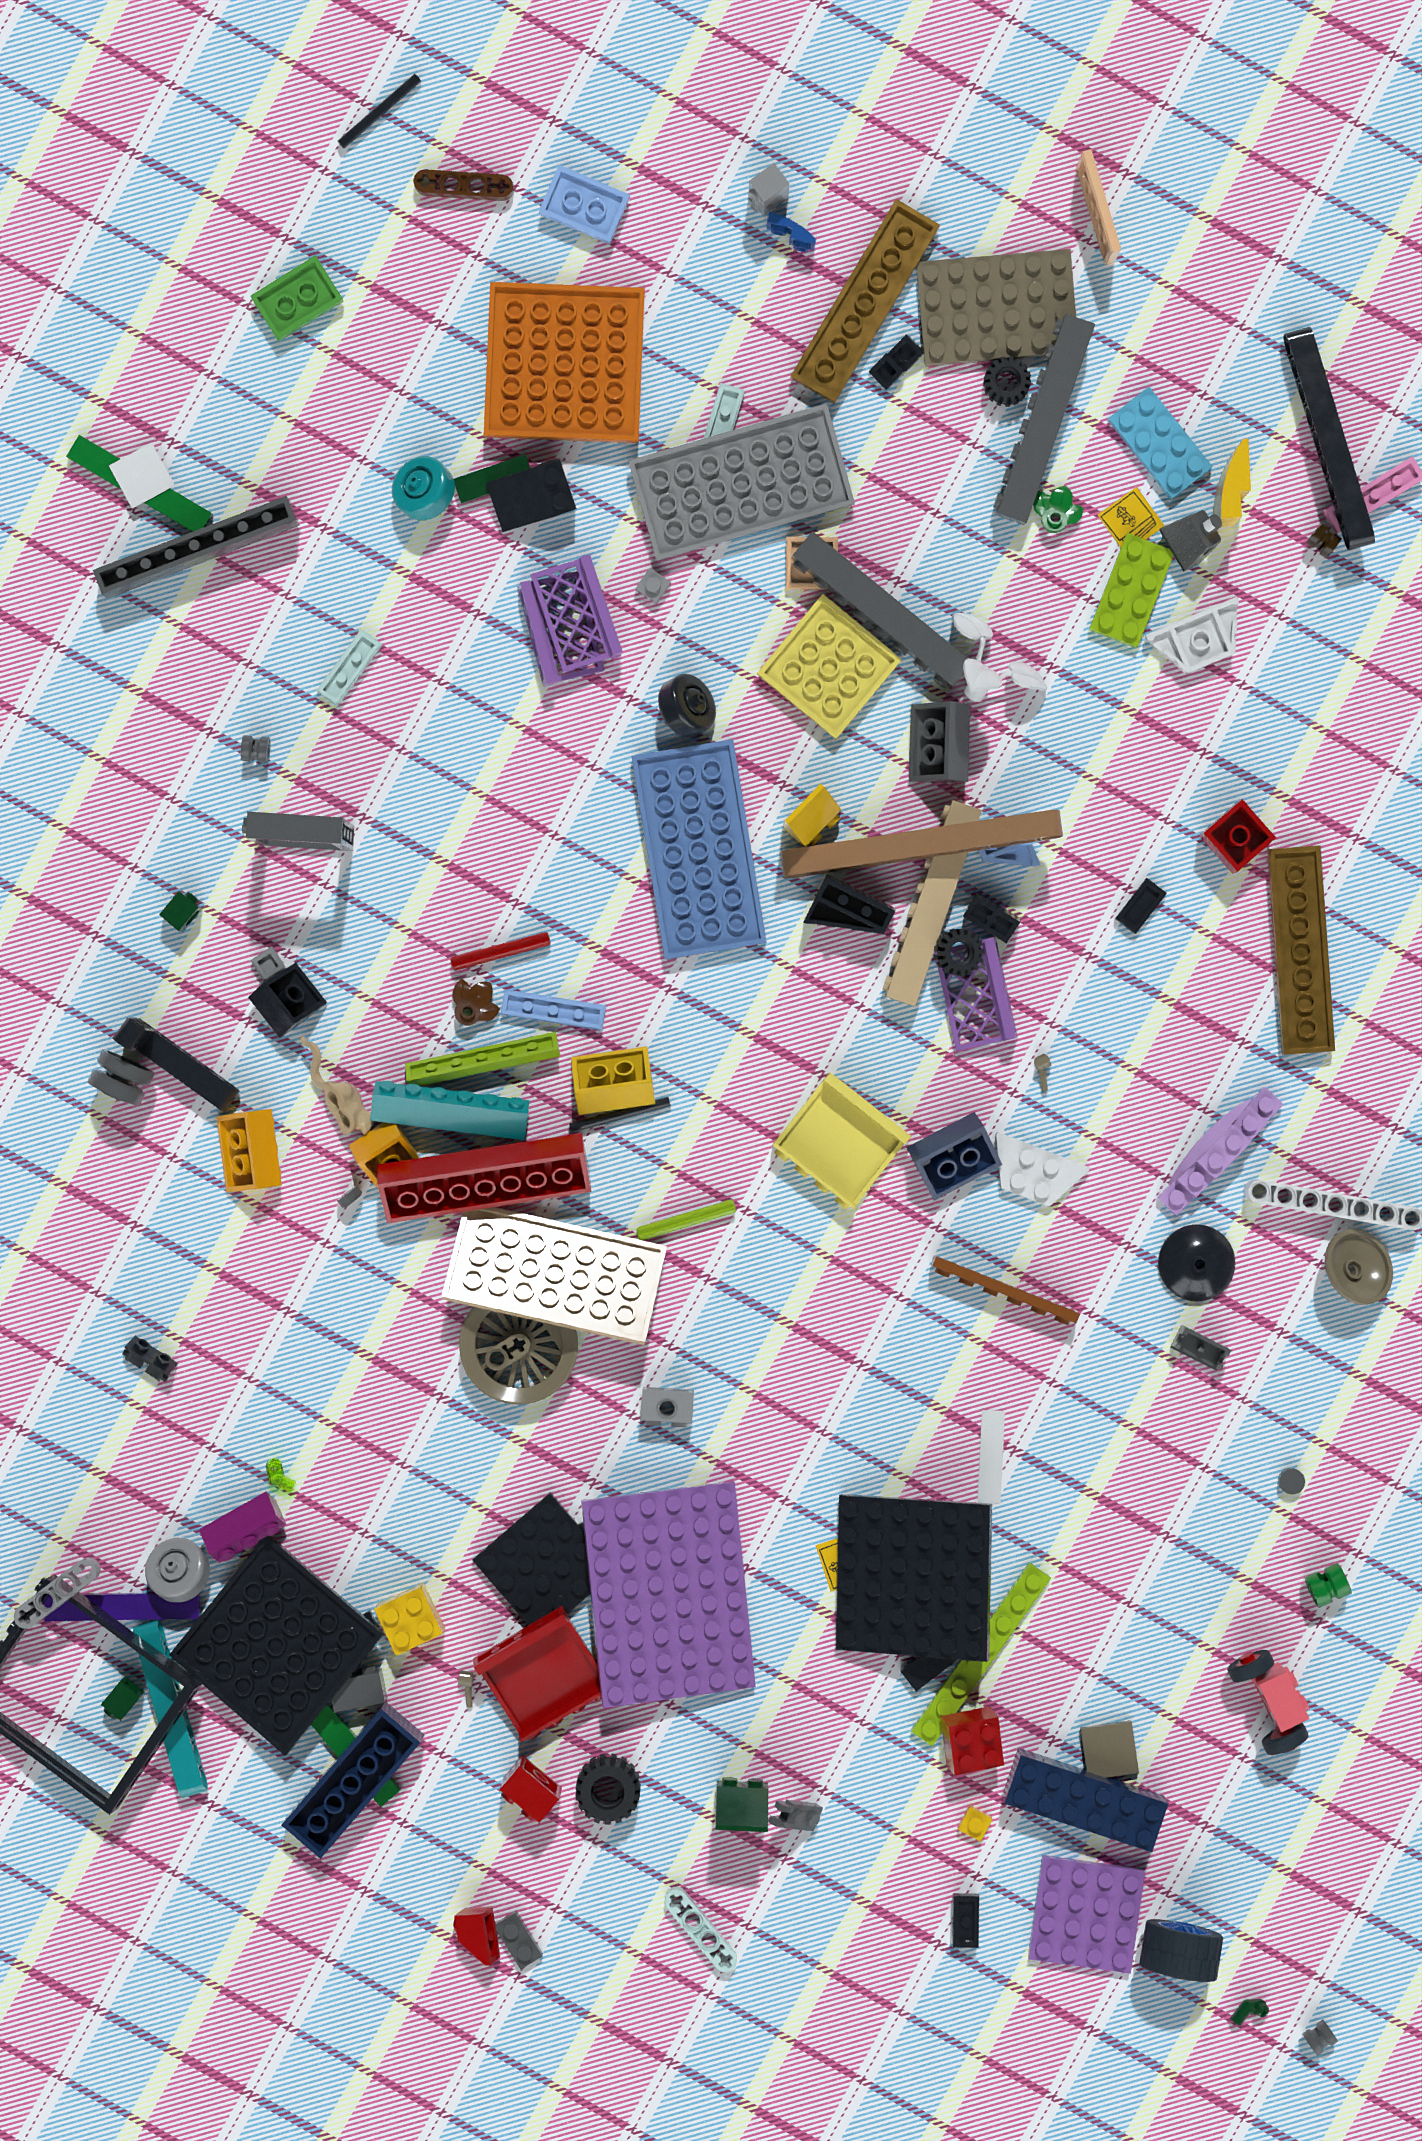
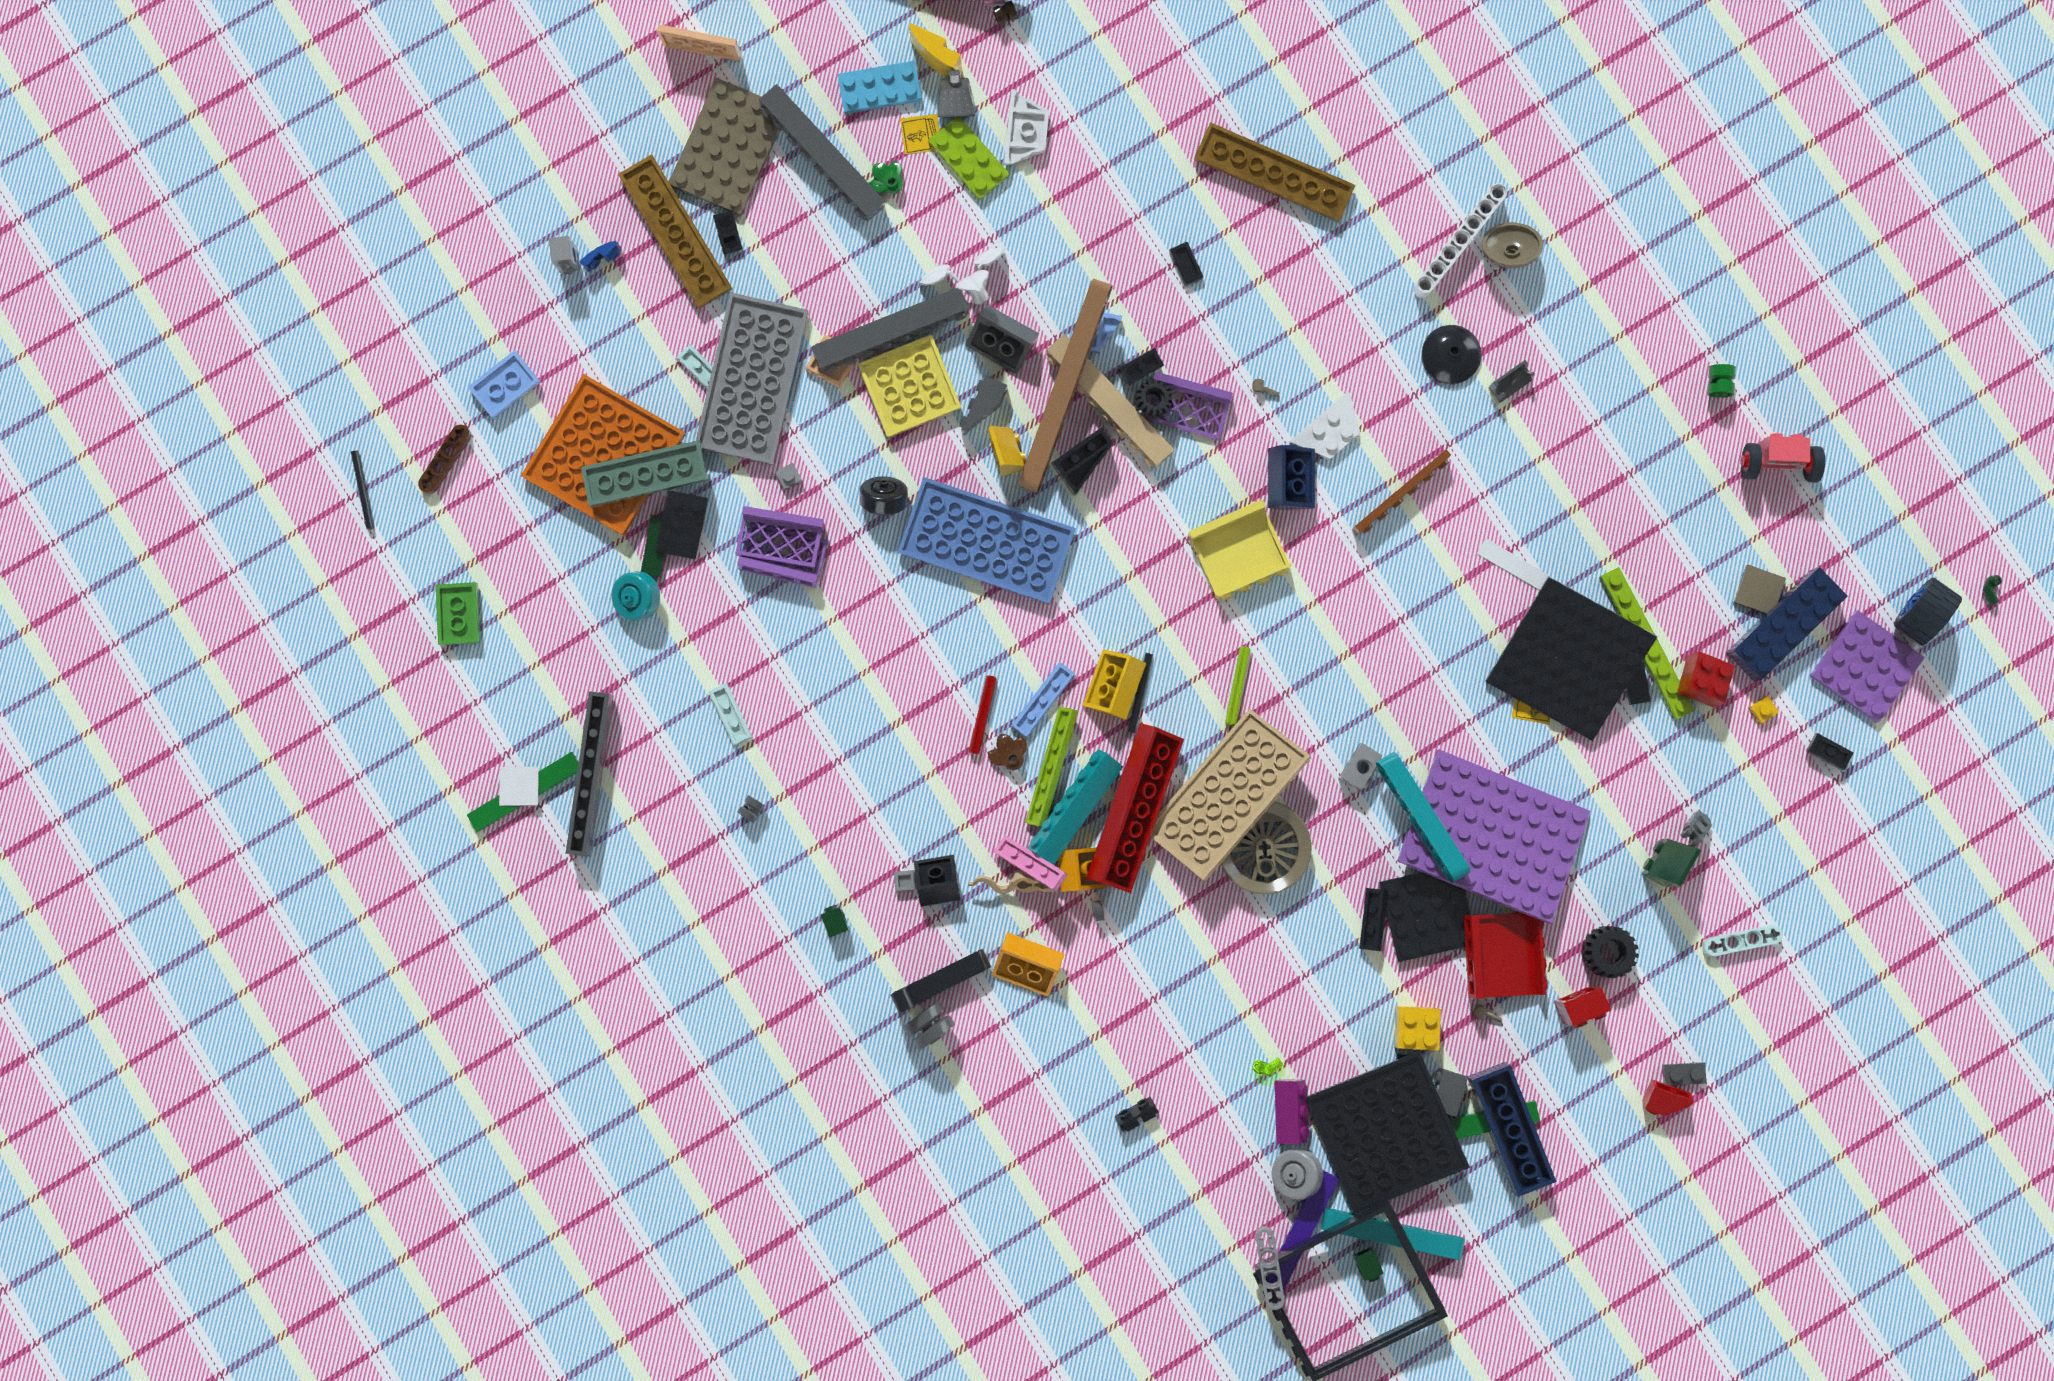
camera: 60 degrees left, 5 degrees down
(299, 831) = (825, 805): dark grey window -> none
(359, 1093) = (1030, 863): none -> bright pink plate
(504, 1508) = (1373, 919): none -> black plate
(565, 421) = (644, 473): none -> sand green plate
(644, 1504) = (1423, 817): none -> teal beam
(860, 764) = (987, 401): none -> dark grey slope
(1007, 397) = (773, 157): black tyre -> none
(1218, 1149) = (1382, 298): lavender piece -> none
(1237, 836) = (1174, 173): red brick -> none
(1291, 1481) = (1635, 368): dark grey tile -> none
(1320, 2037) = (2035, 550): dark grey wheel -> none

